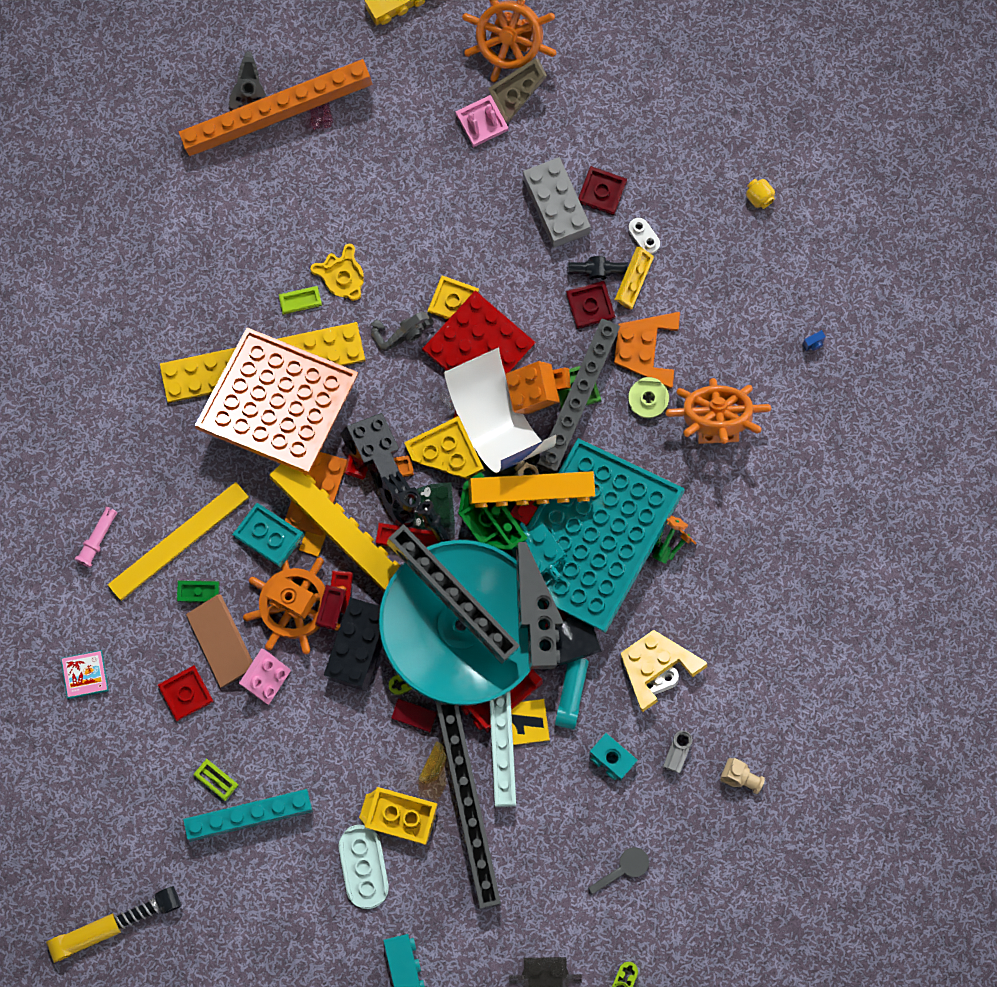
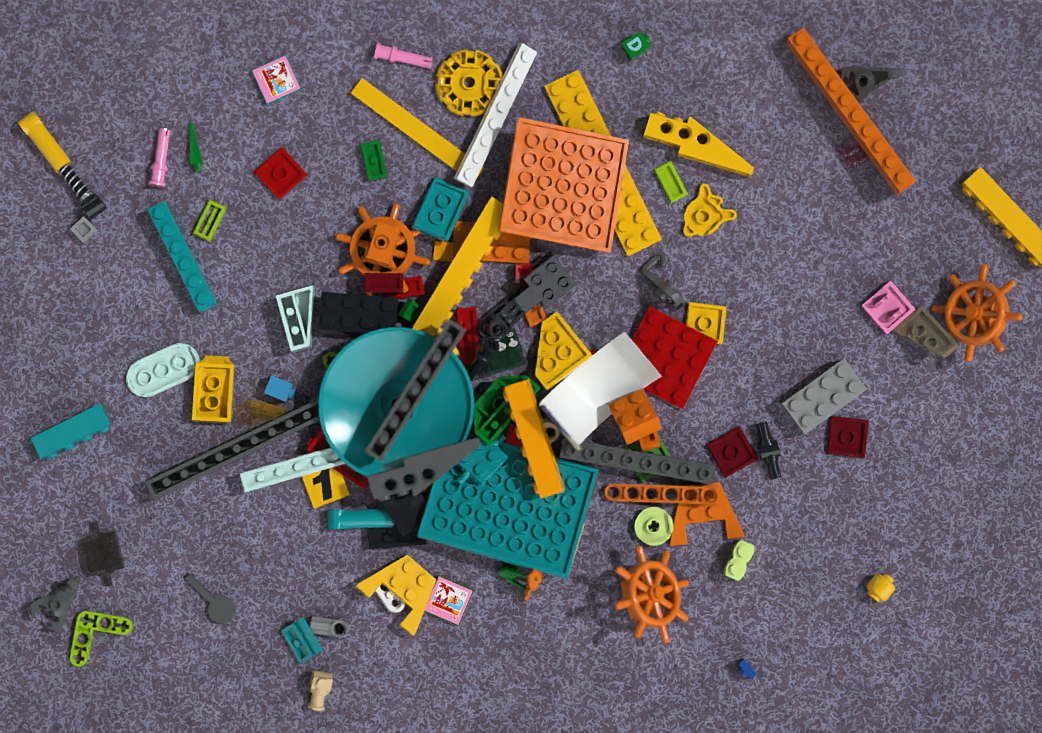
camera: 75 degrees right, 10 degrees up
(144, 778) = (195, 155): none -> green piece
(144, 820) = (159, 167): none -> bright pink pin
(146, 487) = (465, 71): none -> yellow plate
(151, 300) = (636, 45): none -> green brick
(184, 456) = (495, 115): none -> white plate
(190, 917) = (83, 229): none -> light grey plate
(220, 640) = (333, 192): nougat tile -> none
(265, 676) = (309, 239): bright pink plate -> none
(281, 252) = (712, 153): none -> yellow brick
(343, 708) = (297, 316): none -> light aqua wedge
(367, 590) = (411, 311): none -> green plate
(414, 715) = (307, 381): dark red tile -> none
(415, 745) = (280, 389): none -> dark azure brick
(600, 662) = (391, 538): none -> black plate
(606, 746) = (319, 561): teal brick -> none
(613, 381) = (661, 493): none -> orange beam
(634, 277) = (767, 486): yellow tile -> none
(643, 235) = (812, 486): white plate -> none
(678, 621) = (448, 600): none -> tile
(686, 783) = (301, 640): none -> teal plate
(706, 325) = (736, 565): none -> yellowish green brick

